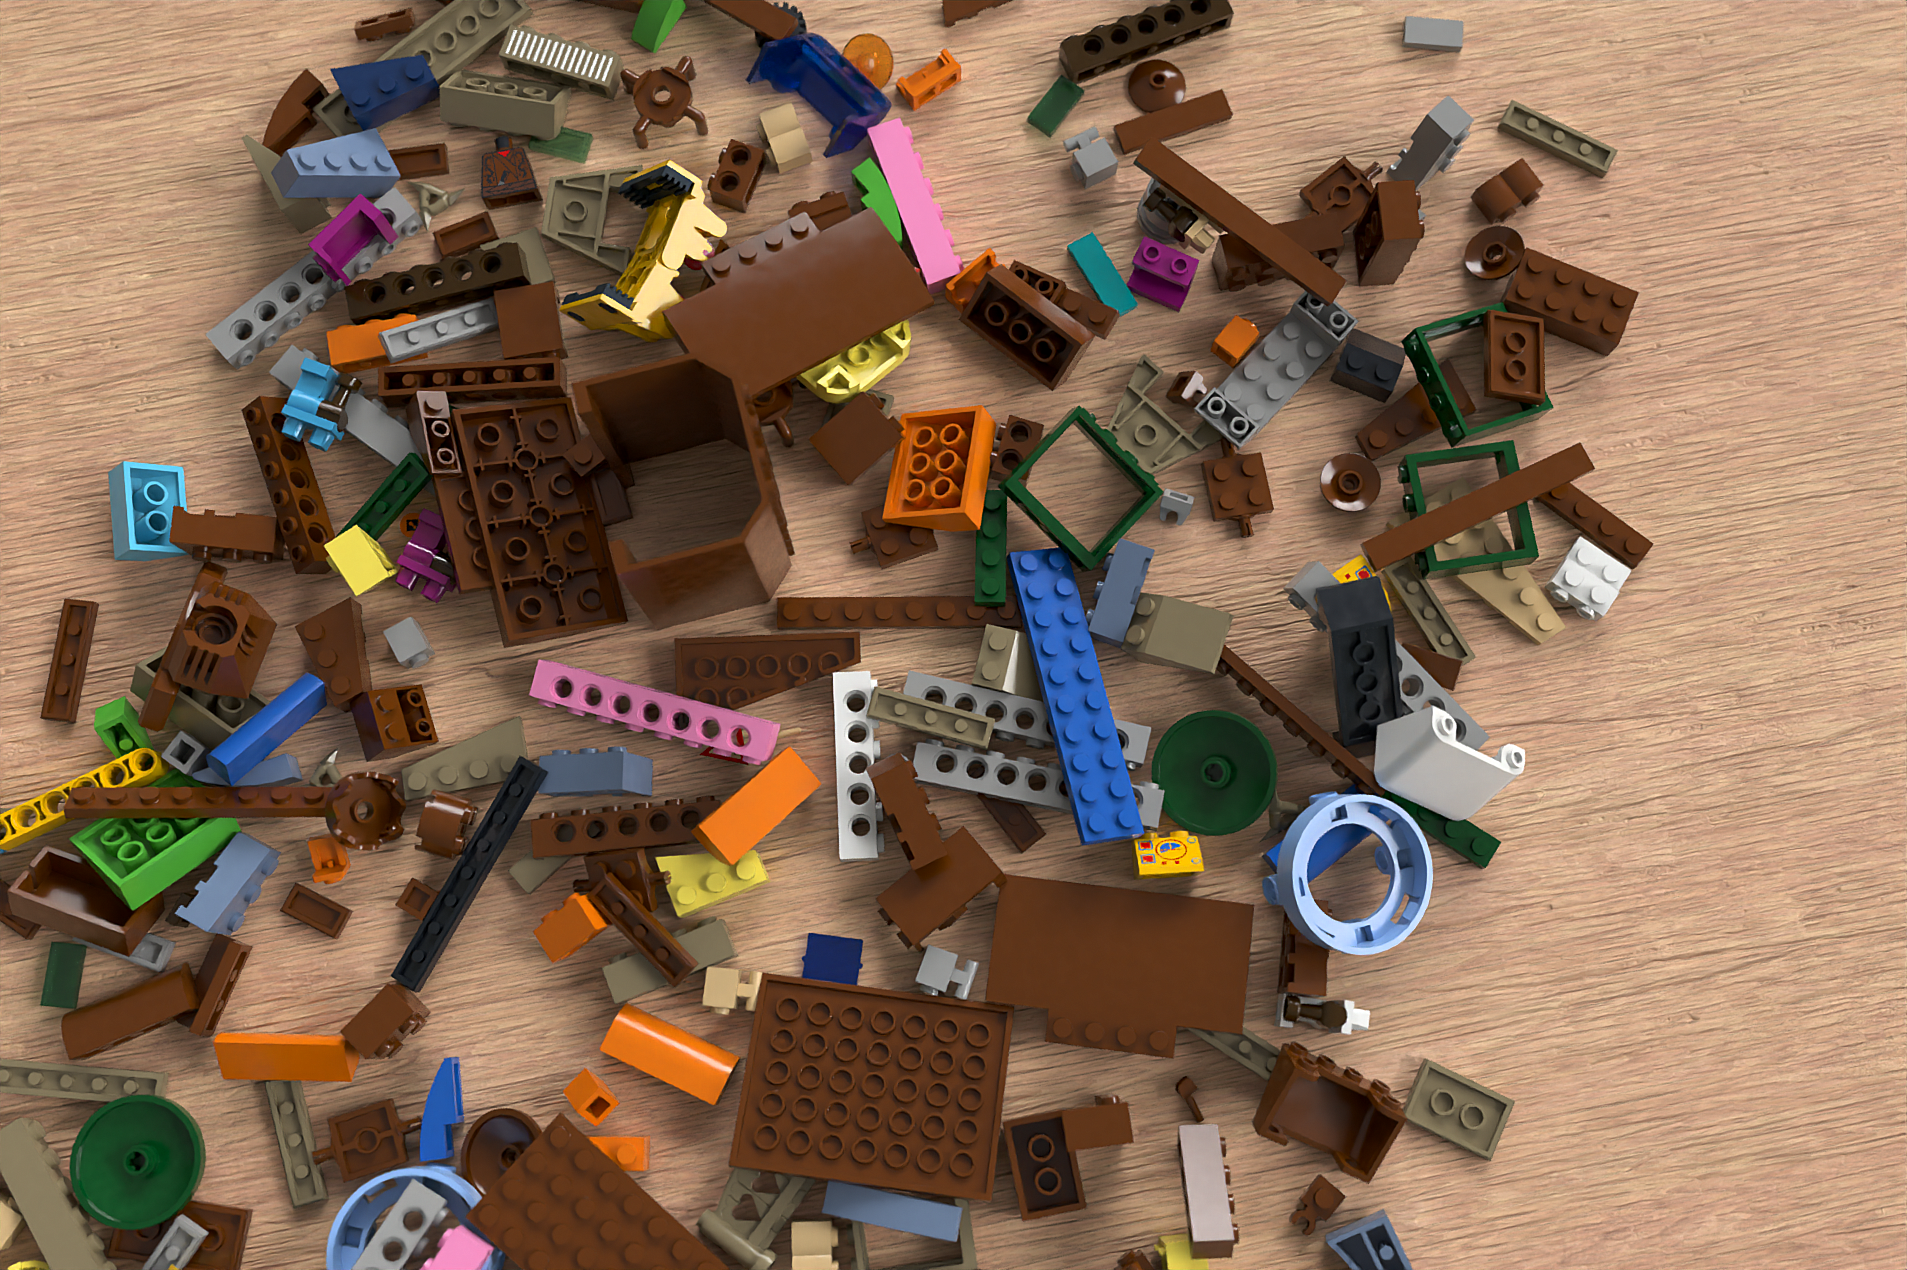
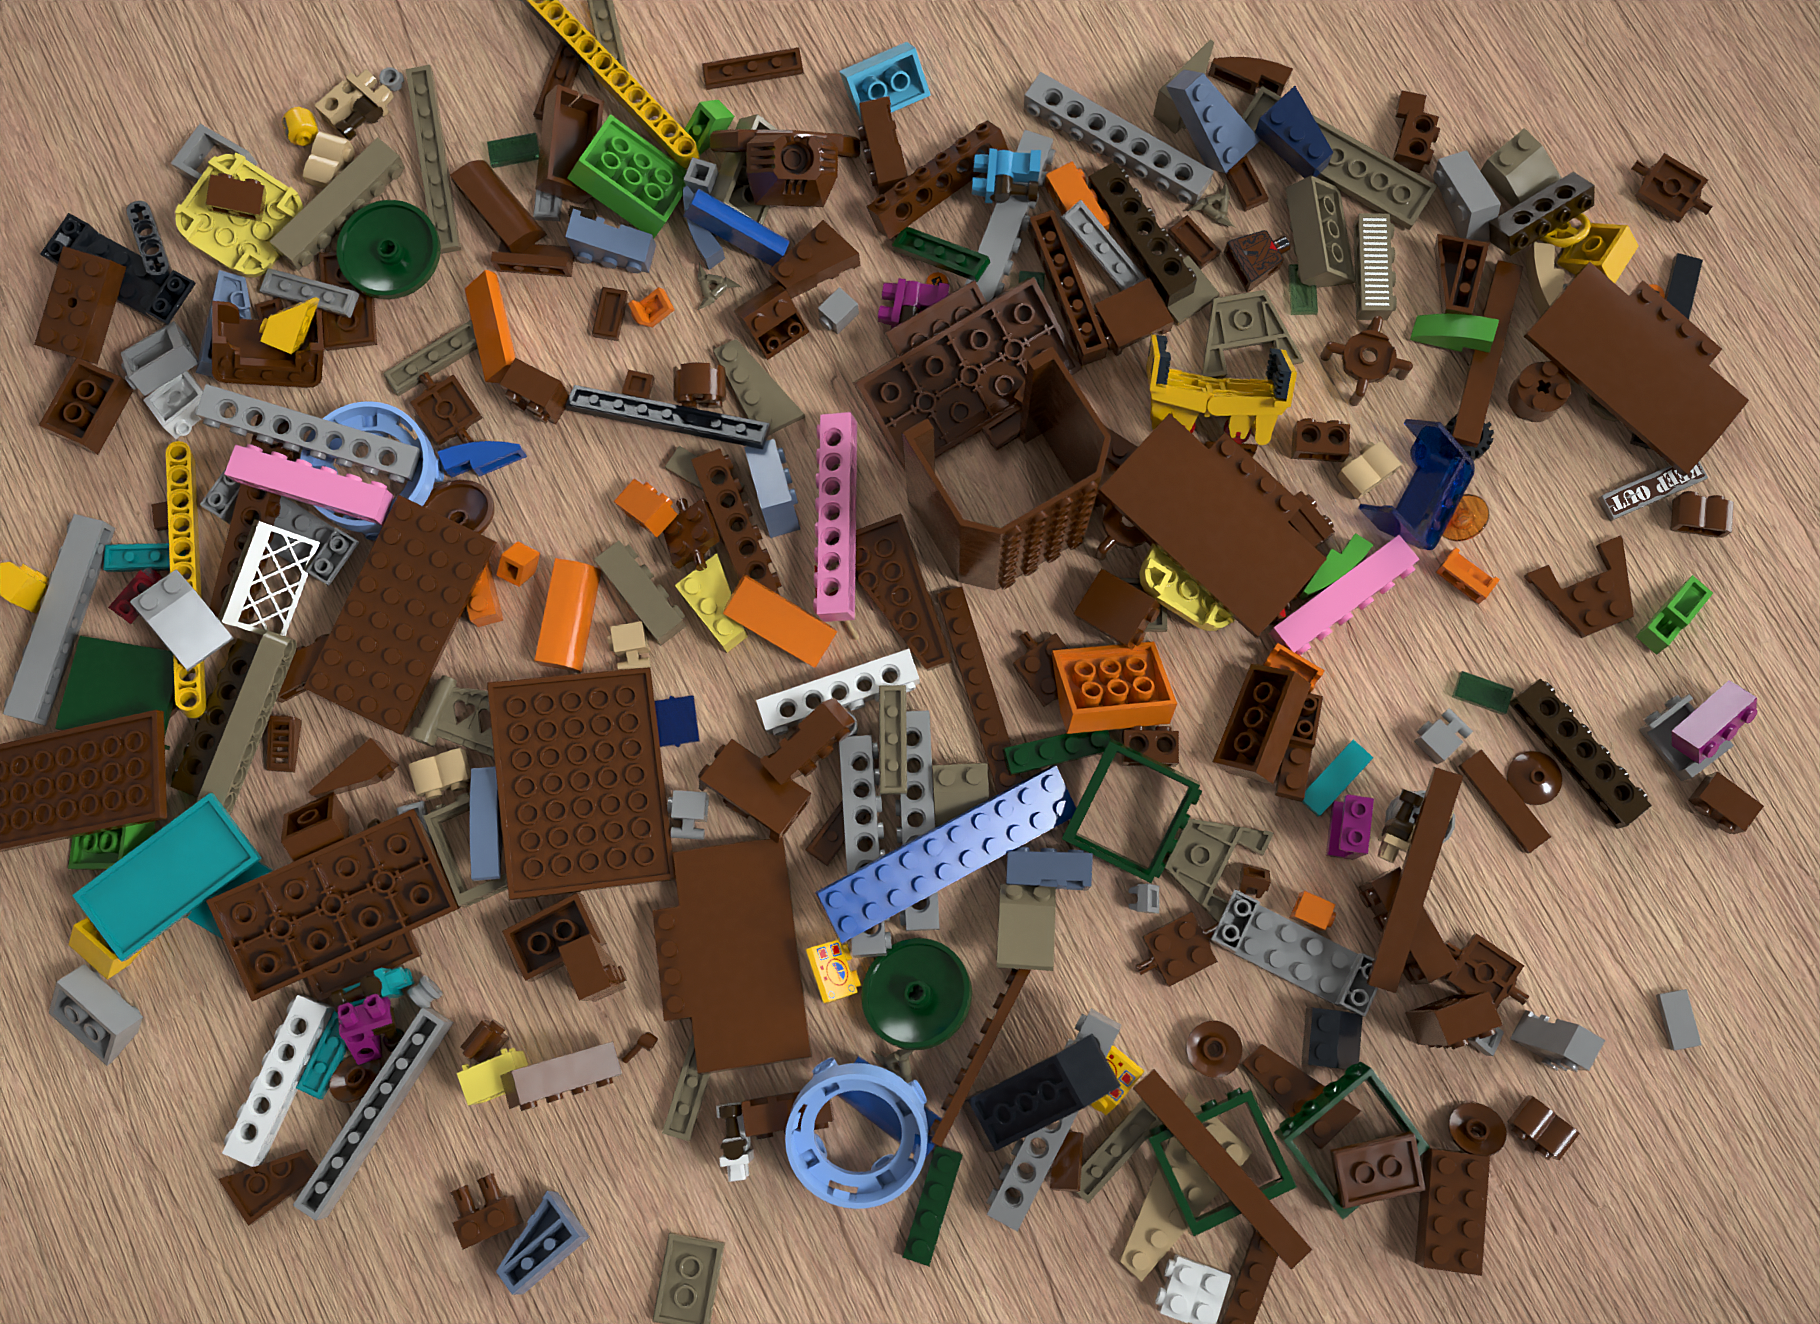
camera: 80 degrees right, 0 degrees up
(196, 802) = (664, 198): reddish brown plate -> none
(348, 236) = (1152, 147): magenta panel -> none
(359, 560) = (887, 249): light yellow wedge -> none
(374, 27) = (1353, 112): reddish brown plate -> none
(383, 810) = (693, 337): reddish brown plate -> none
(433, 432) = (1011, 270): reddish brown slope -> none
(642, 929) = (655, 561): reddish brown tile -> none
(1320, 1200) = (583, 1180): reddish brown plate -> none
(1329, 1110) = (658, 1166): reddish brown windscreen -> none
(1427, 766) = (967, 1169): white windscreen -> none
(1557, 139) = (1615, 1165): dark tan tile -> none

